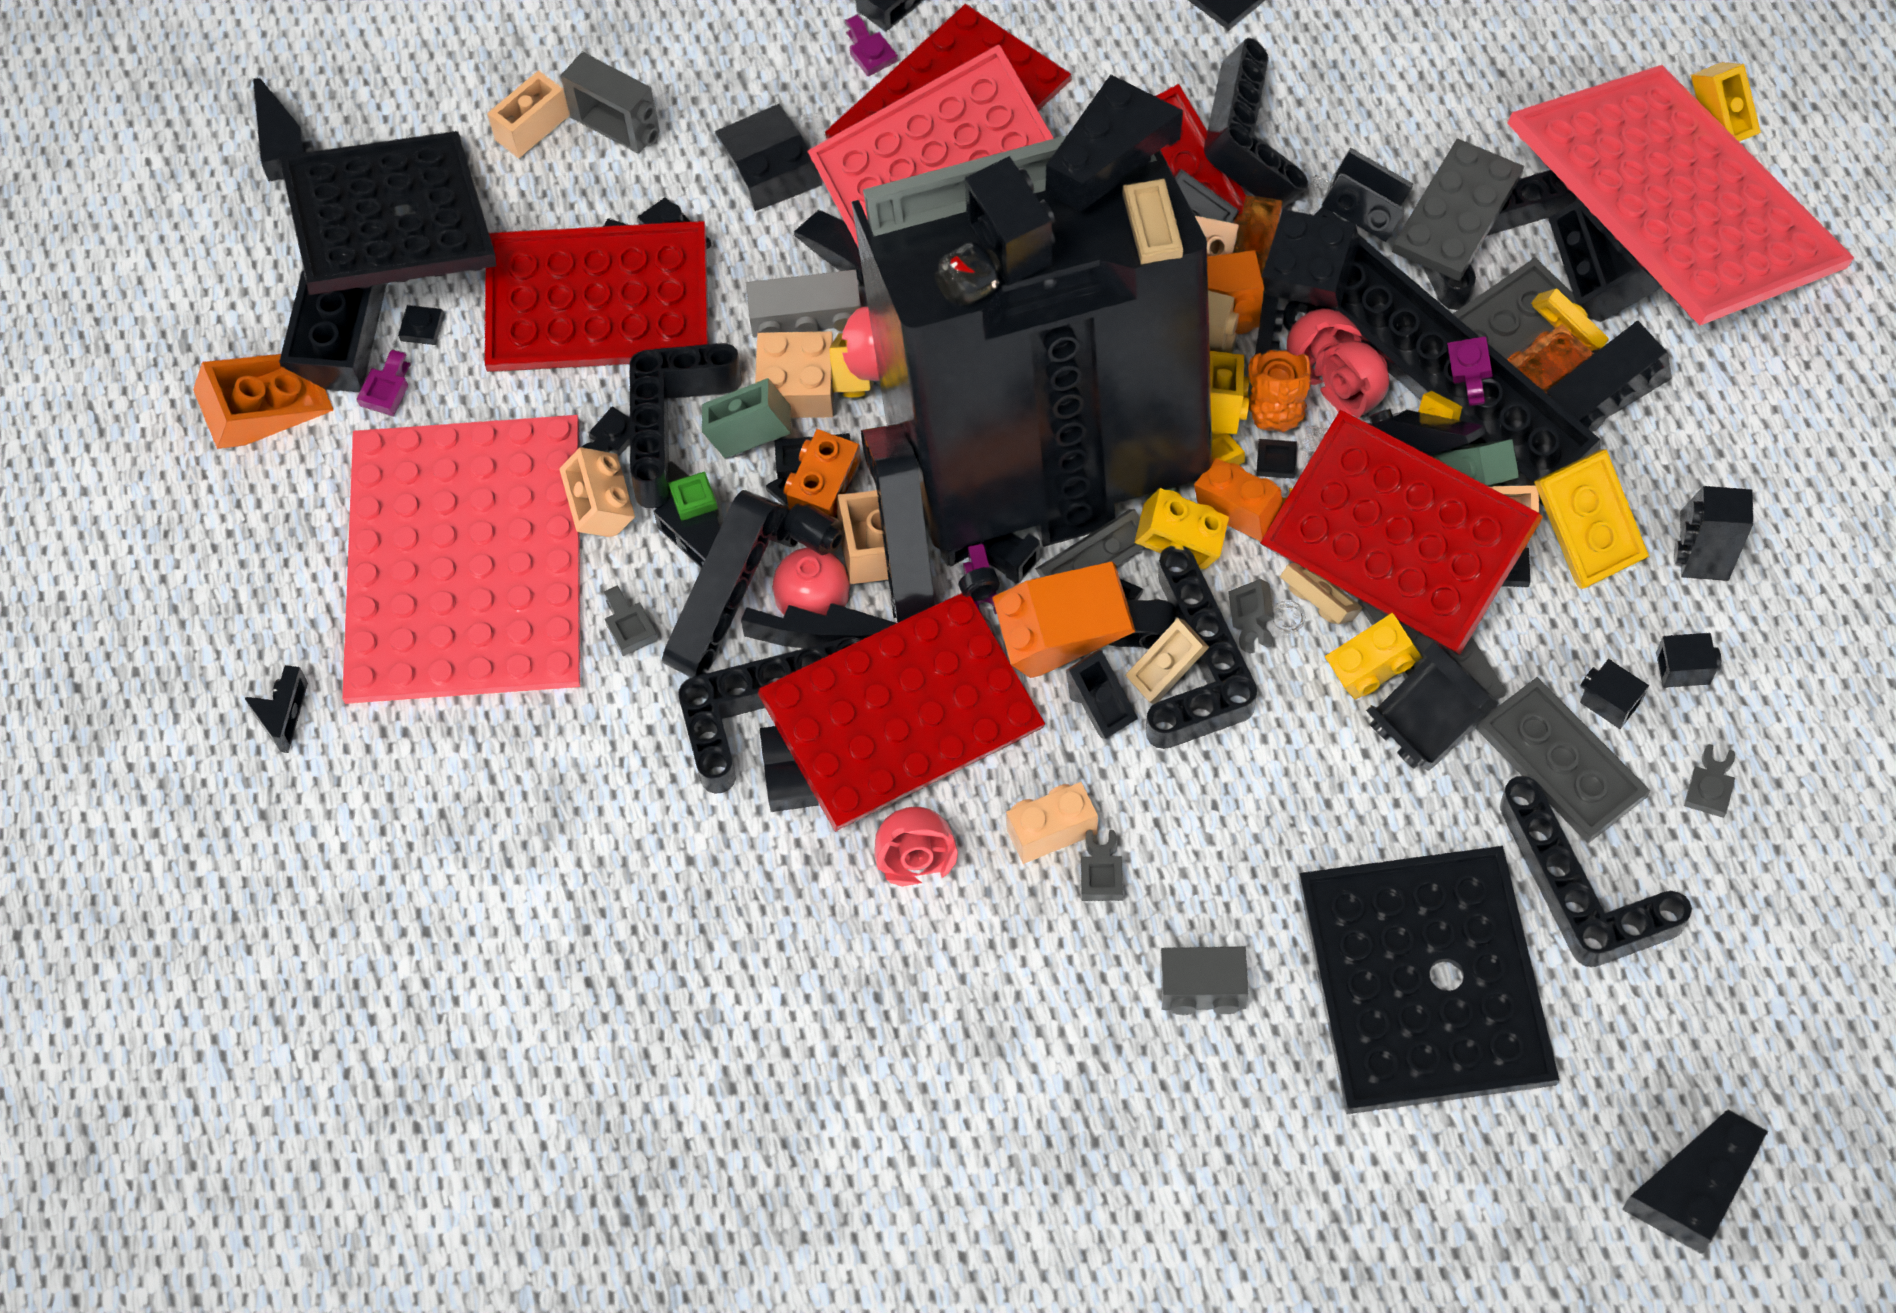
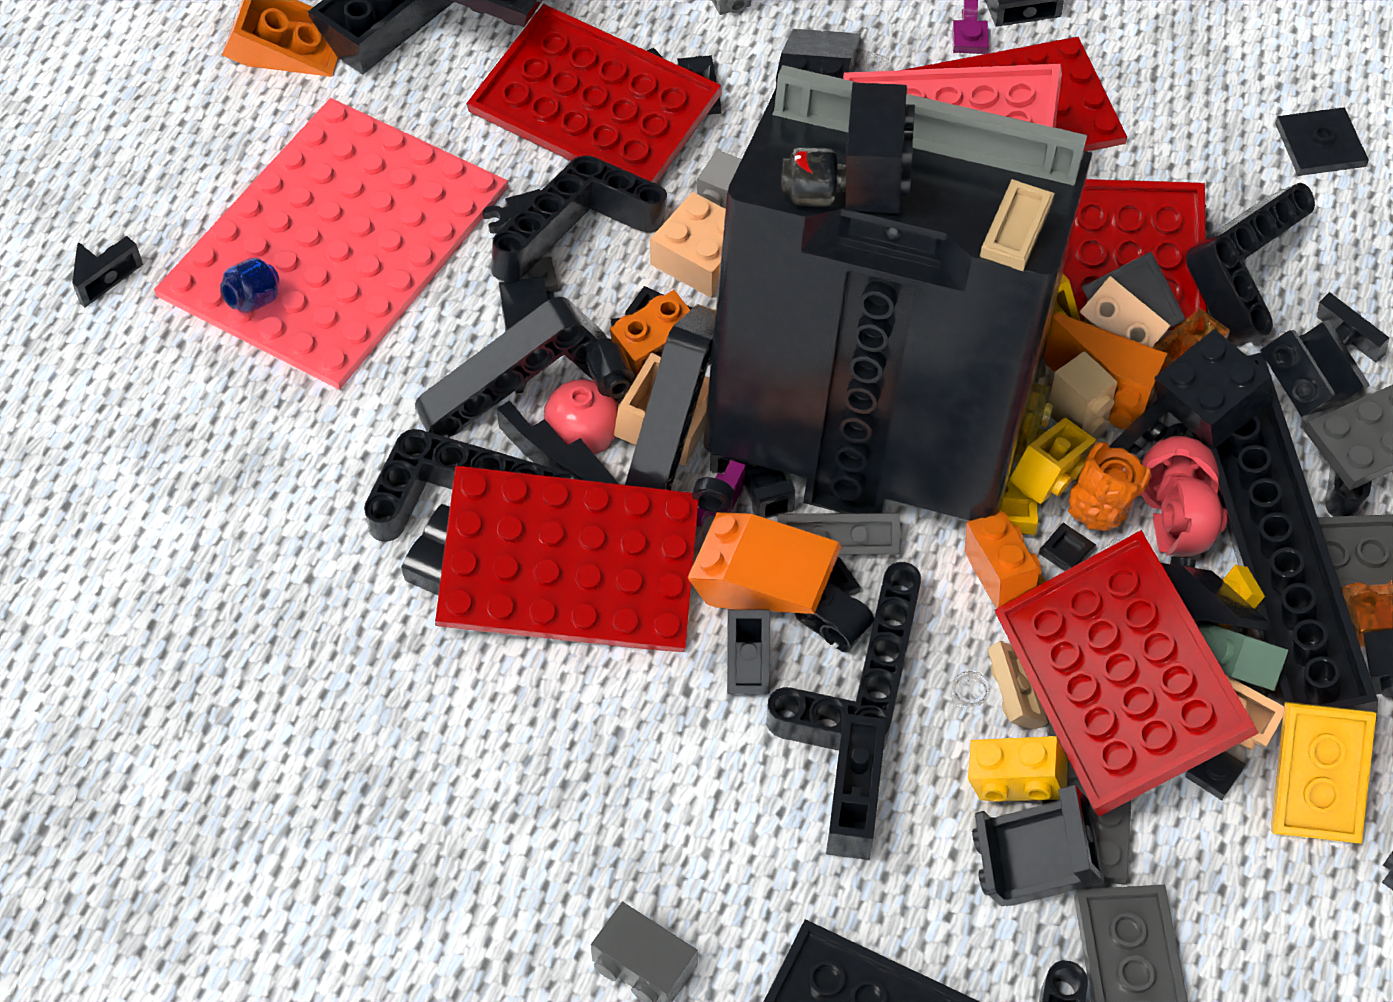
camera: 30 degrees right, 5 degrees down
(385, 388) = (383, 79): magenta plate -> none
(421, 325) = (447, 49): black plate -> none
(438, 642) = (249, 285): none -> clear blue head
(597, 492) = (466, 245): light nougat brick -> none
(628, 625) = (413, 363): dark grey plate -> none
(693, 496) = (536, 286): bright green tile -> none
(746, 418) = (630, 253): sand green brick -> none
(913, 841) = (485, 670): coral cylinder -> none
(1051, 821) = (621, 733): light nougat brick -> none
(1102, 872) = (632, 806): dark grey plate -> none
(1110, 140) = (1022, 132): black wedge -> none
(1166, 661) = (829, 658): tan plate -> none
(1179, 522) = (932, 549): yellow brick -> none
(1250, 610) = (940, 663): dark grey plate -> none
(1266, 748) = (856, 787): none -> black slope
(1365, 140) = (1353, 328): none -> black tile
(1470, 364) = (1297, 562): magenta plate -> none
(1613, 693) = (1229, 946): black brick -> none
(1688, 660) = (1328, 962): black brick -> none

